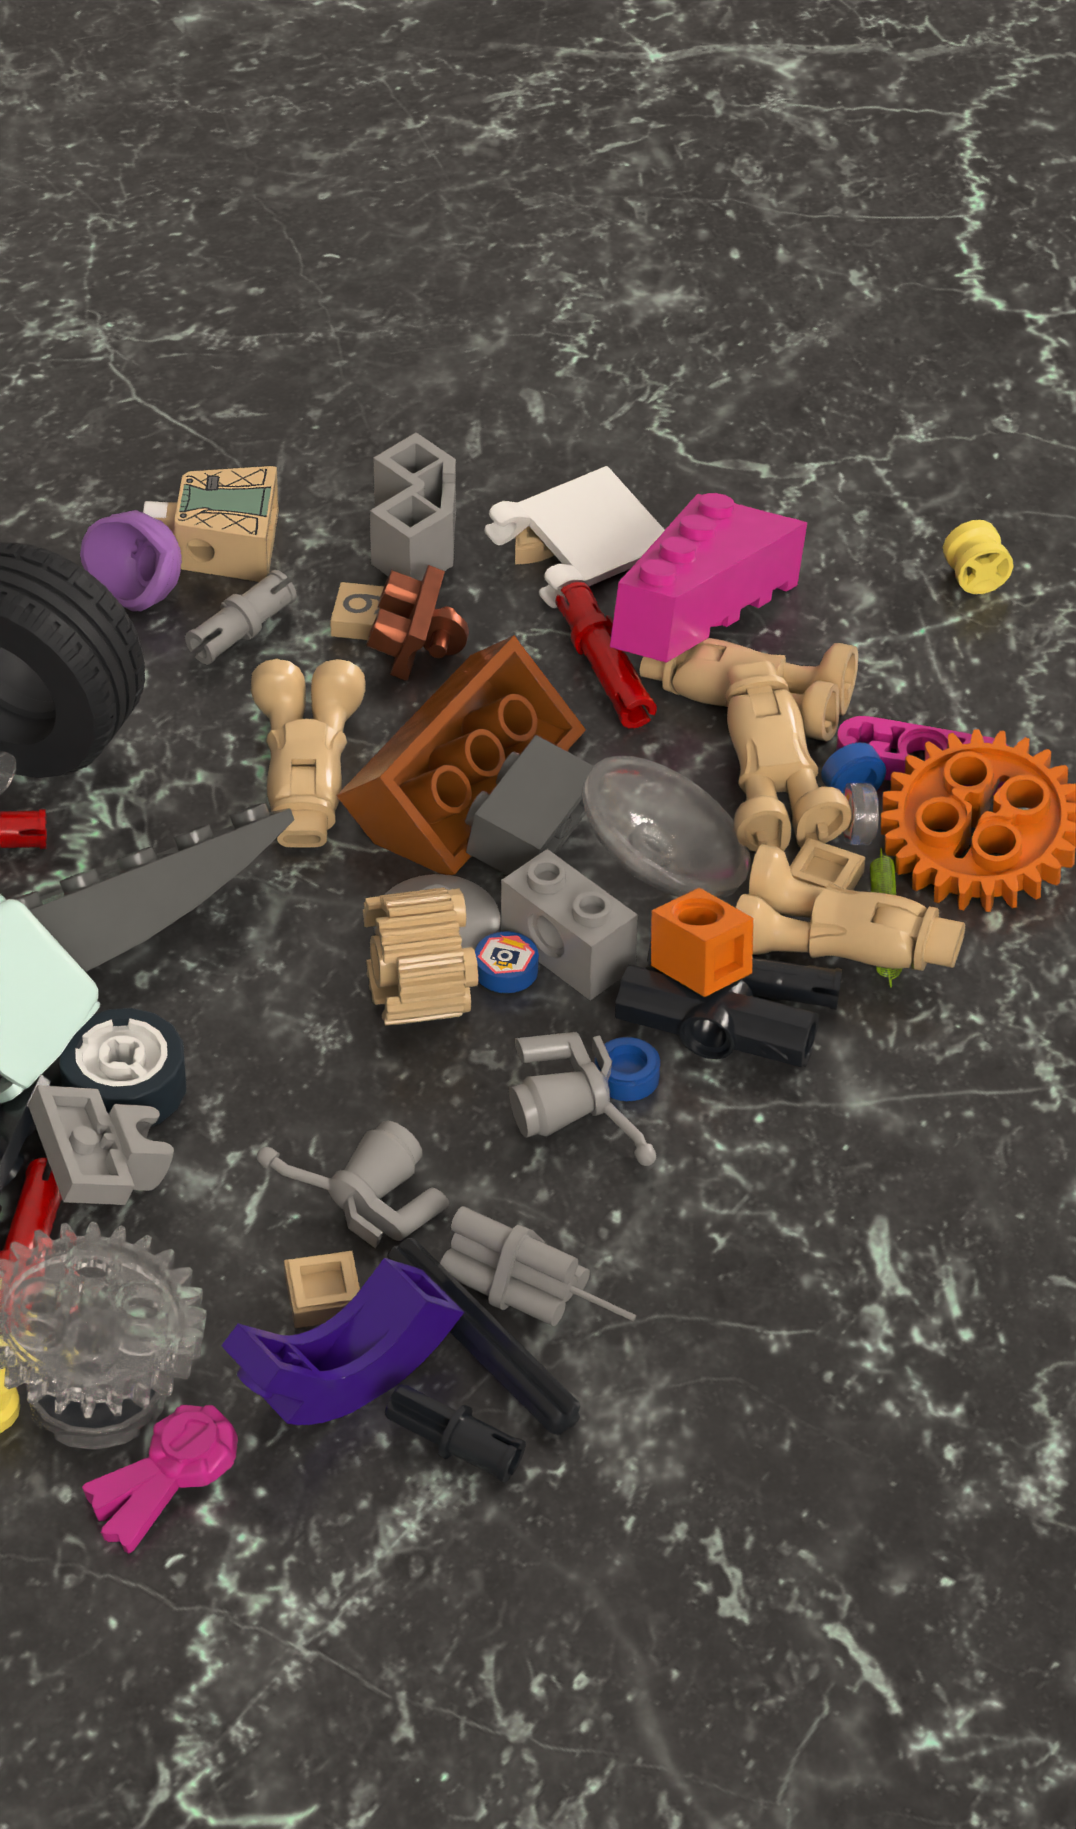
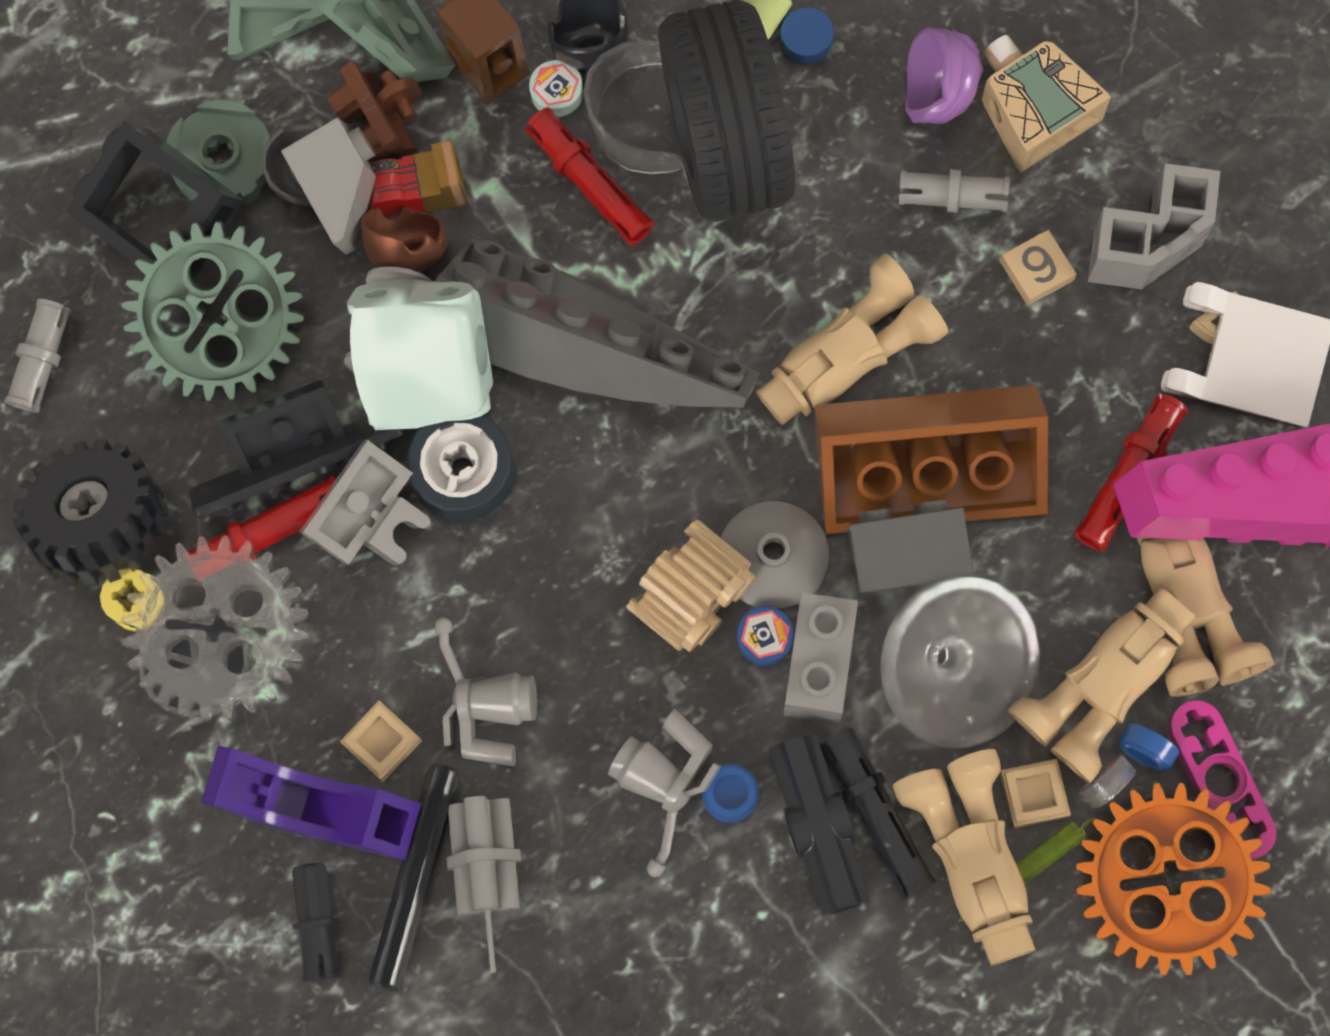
camera: 60 degrees right, 30 degrees up
(184, 1451) = (175, 764): dark pink piece -> none
(410, 621) = (1063, 301): copper hips -> none
(702, 942) = (834, 802): orange brick -> none

